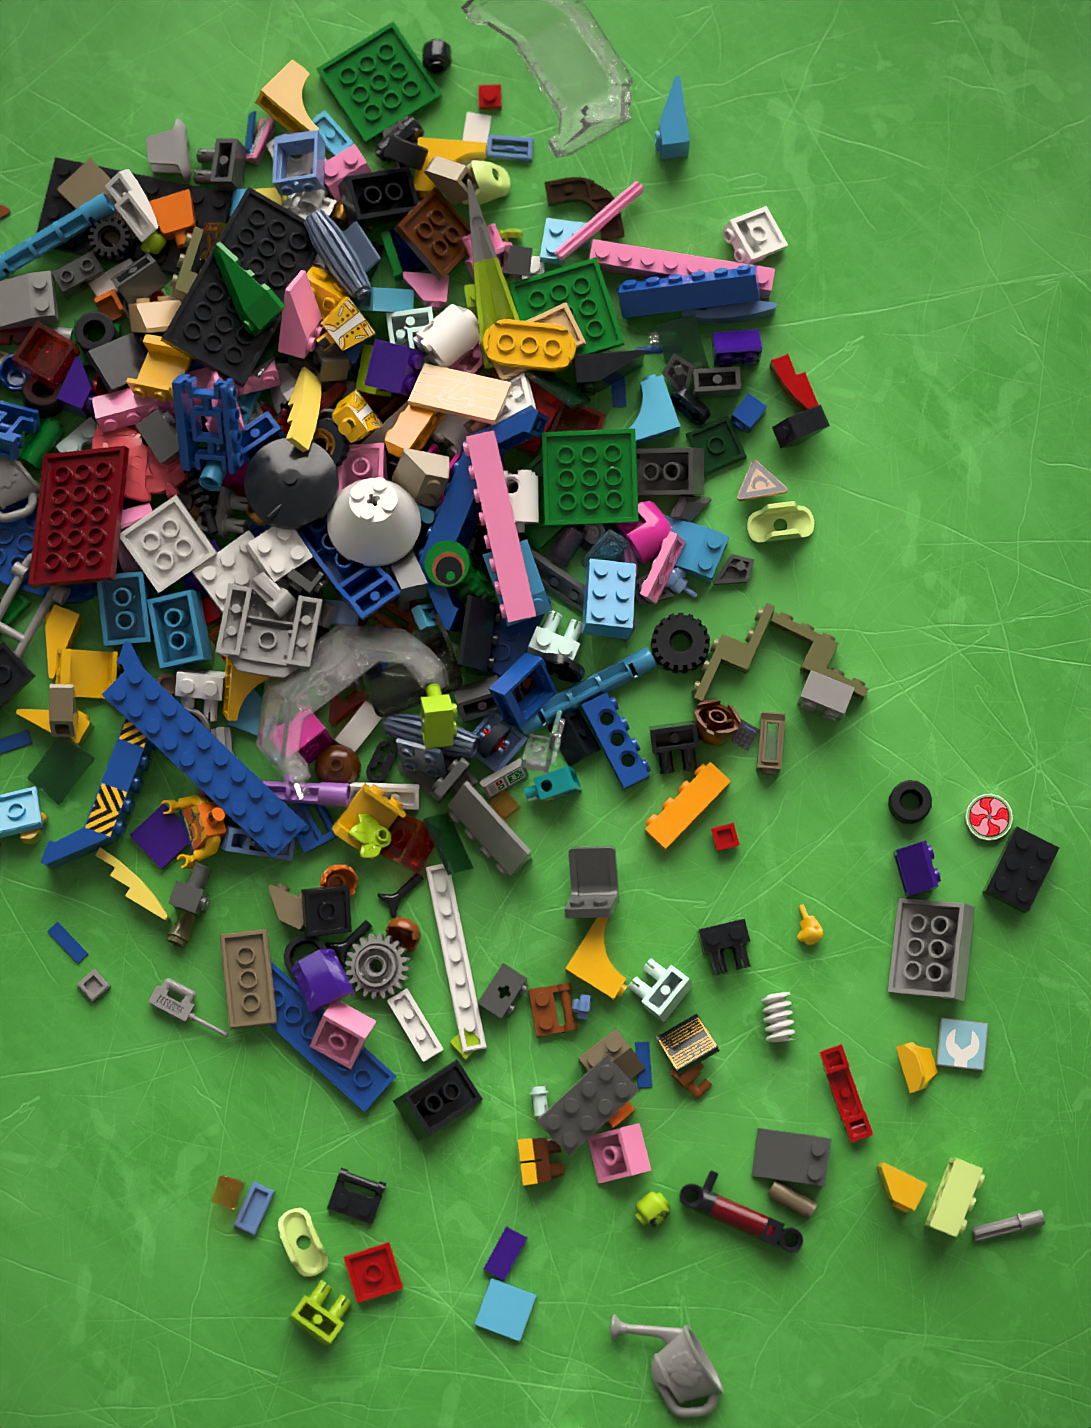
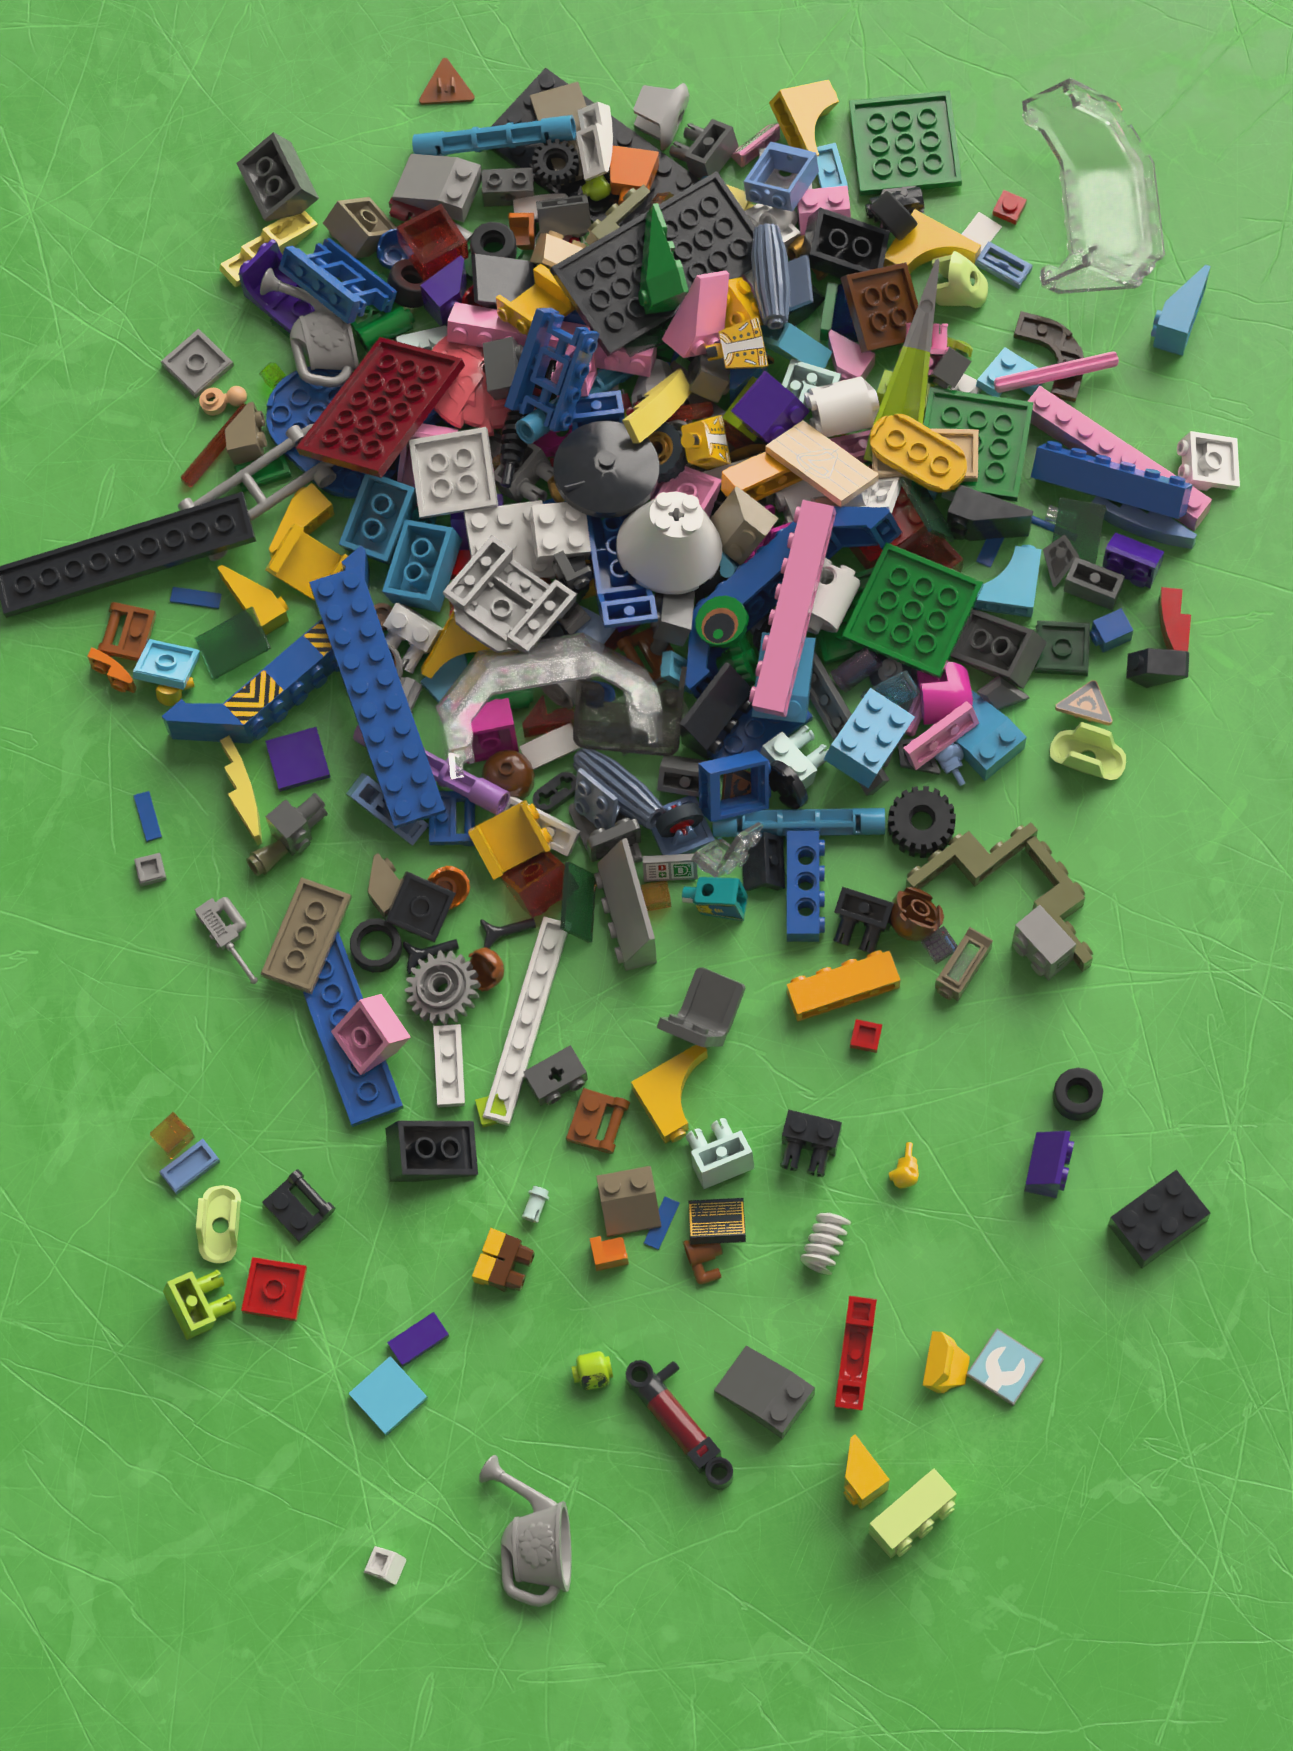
camera: 30 degrees right, 10 degrees down
(63, 710) = (263, 582): dark tan slope -> none
(202, 825) = (341, 764): torso -> none
(250, 131) = (751, 130): blue window -> none
(277, 600) = (531, 573): light grey piece -> none
(321, 979) = (377, 967): dark purple slope -> none
(368, 835) = (502, 850): lime plate -> none
(436, 56) = (976, 143): black head -> none
(437, 718) = (629, 765): lime brick -> none
(451, 178) = (921, 256): dark tan slope -> none
(582, 1006) = (628, 1130): medium blue plate -> none
(587, 1105) = (580, 1226): dark grey plate -> none
(619, 1153) = (588, 1296): bright pink slope -> none
(690, 406) = (1054, 595): black beam -> none
(735, 570) = (1016, 779): dark grey piece -> none
(792, 1199) = (743, 1434): dark tan piece -> none
(931, 949) = (1023, 1253): light grey slope -> none
(988, 817) = (1153, 1151): tile -> none
(1008, 1225) = (957, 1576): light grey axle -> none

